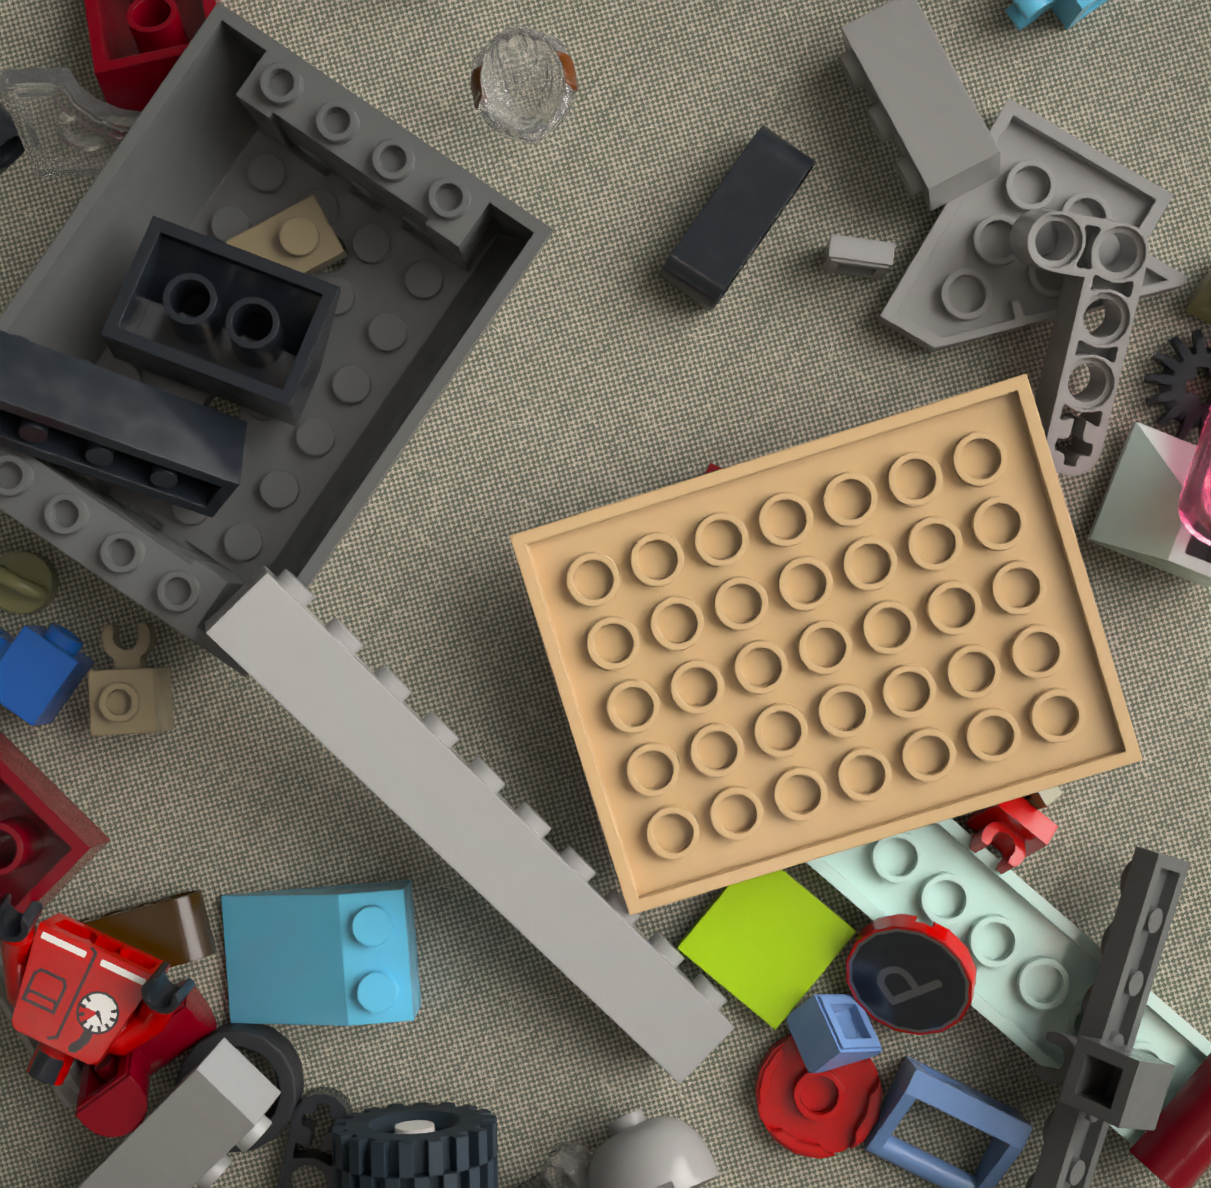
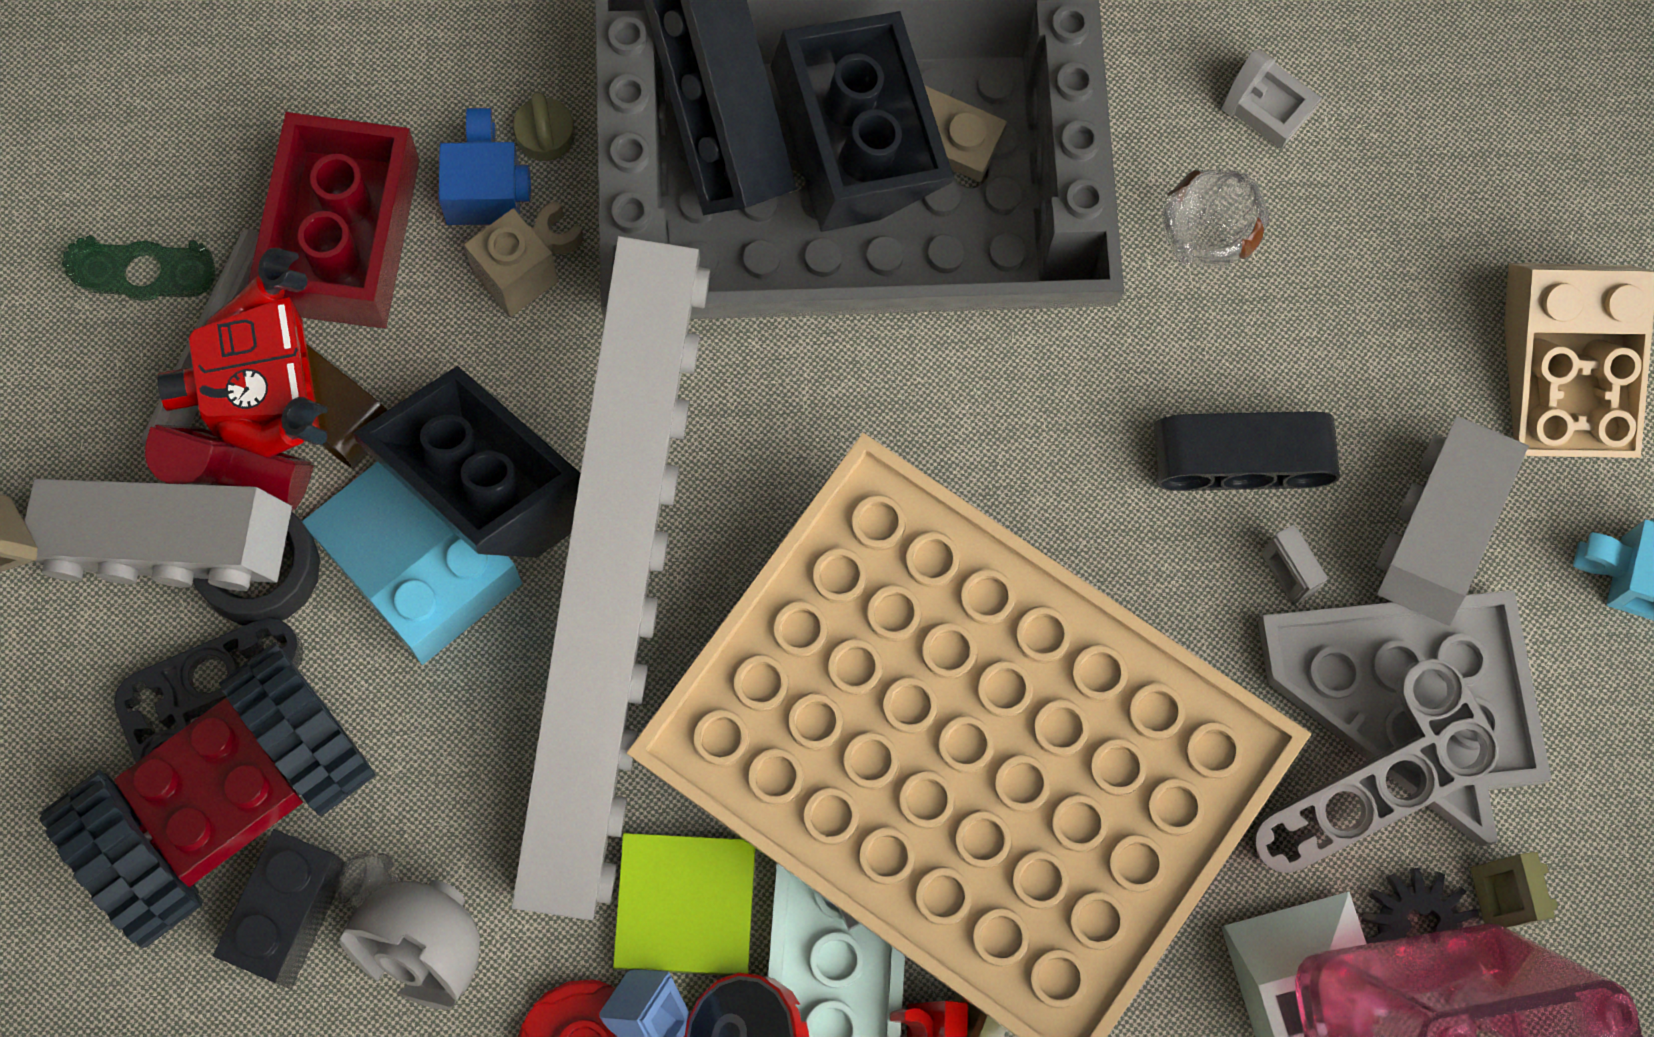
camera: 45 degrees right, 15 degrees down
(299, 869) = (476, 467): none -> black slope

